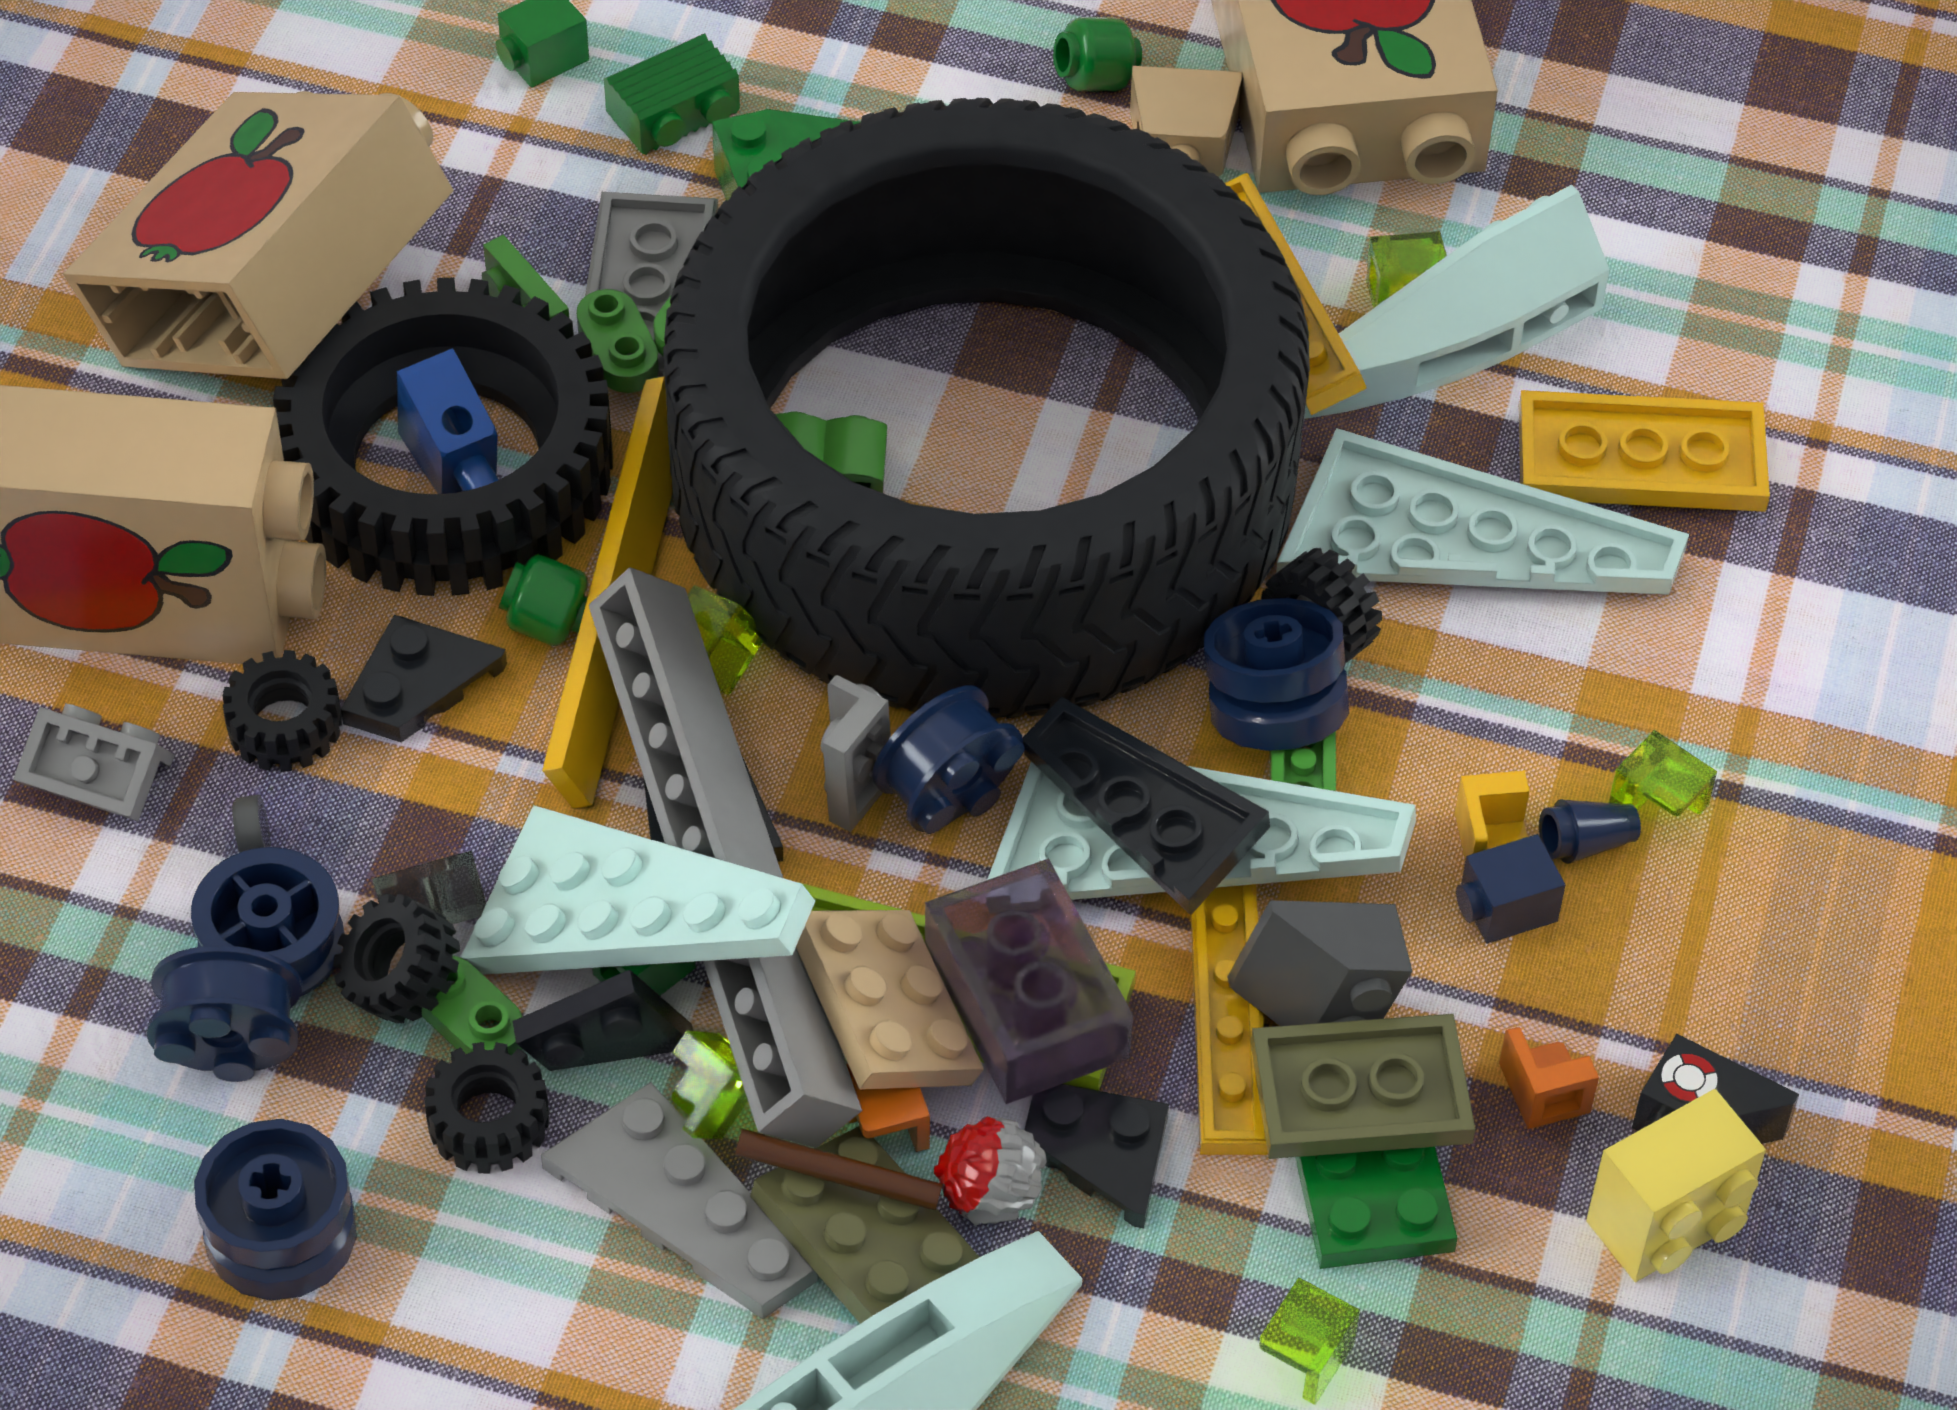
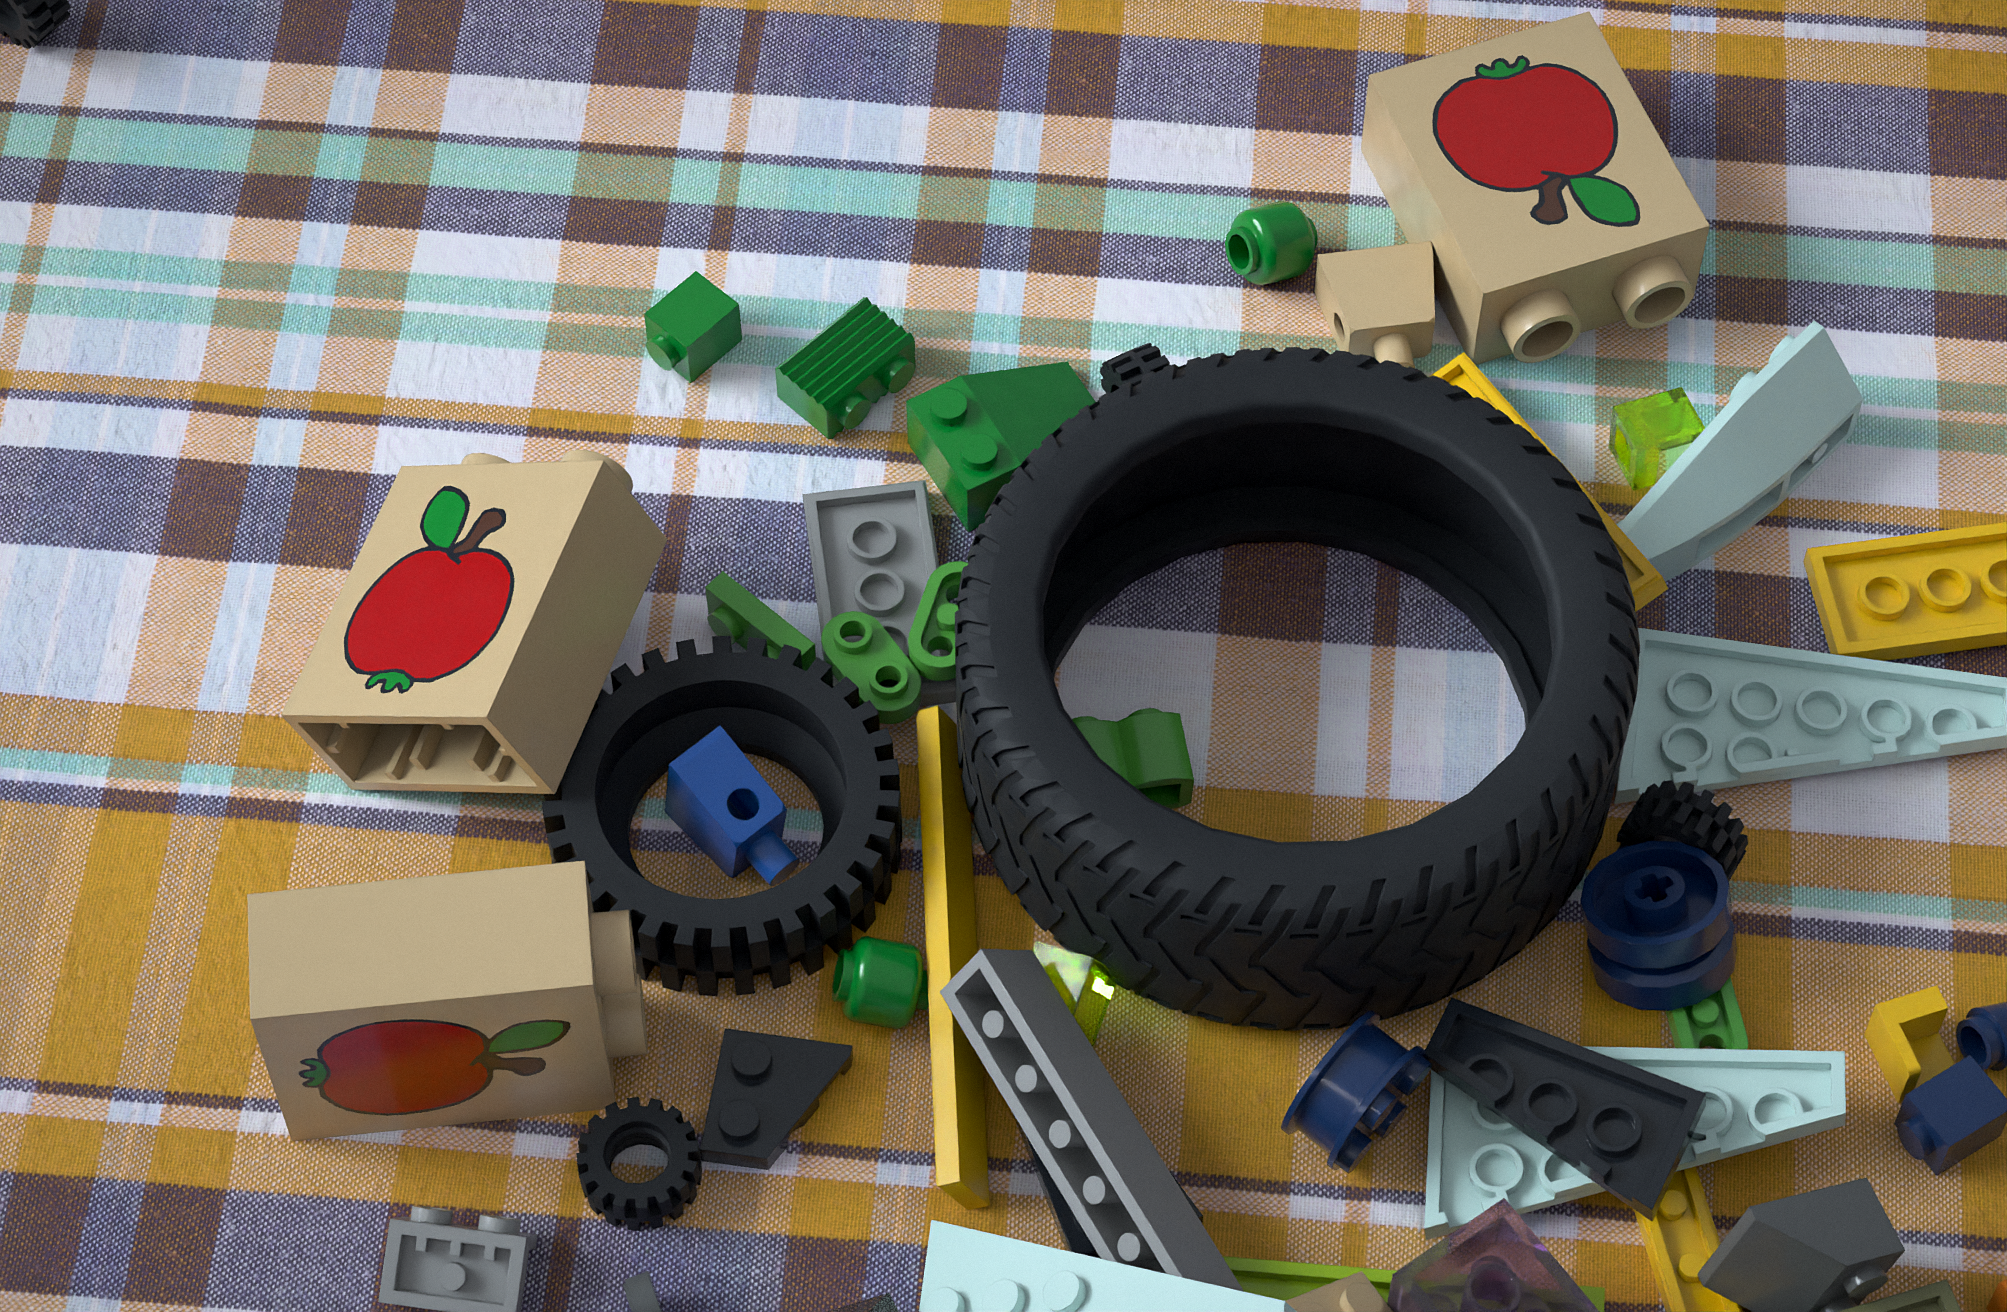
camera: 10 degrees left, 5 degrees up
(850, 749) = (1257, 1093): light grey bracket -> none

